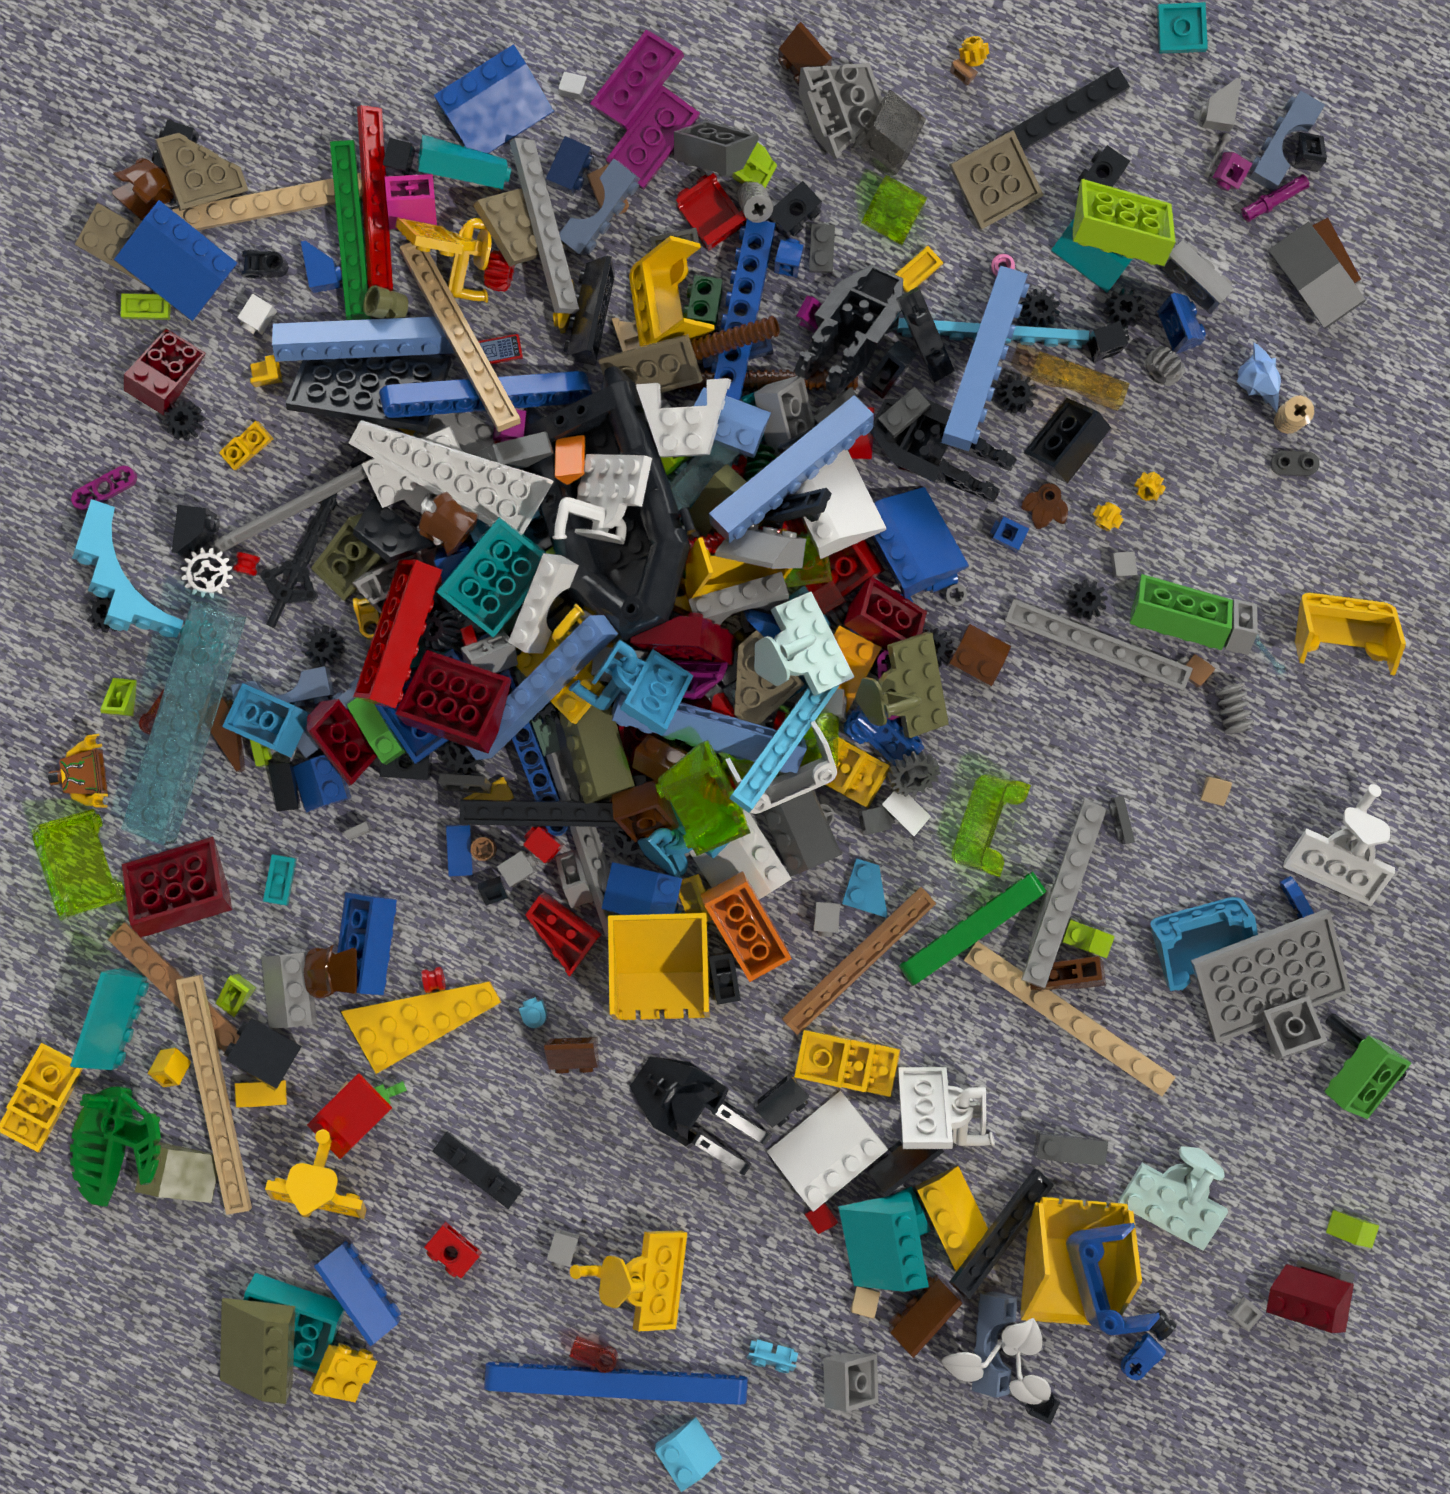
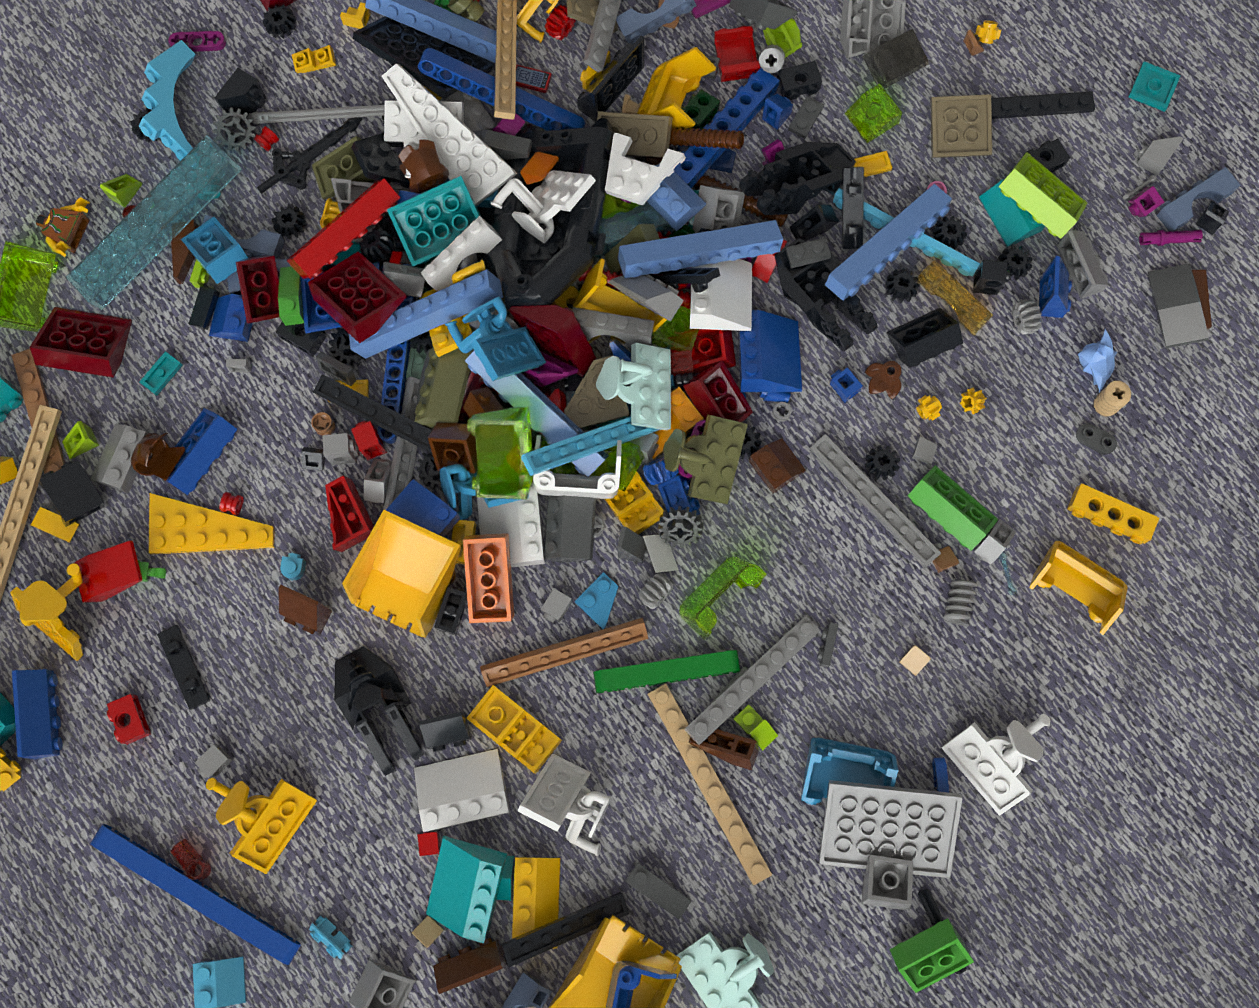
camera: 25 degrees right, 10 degrees down
(459, 850) = (301, 421): blue slope -> none
(900, 1166) = (514, 831): black slope -> none
(921, 852) = (655, 590): none -> light grey gear
(1384, 532) = (1144, 522): none -> yellow brick

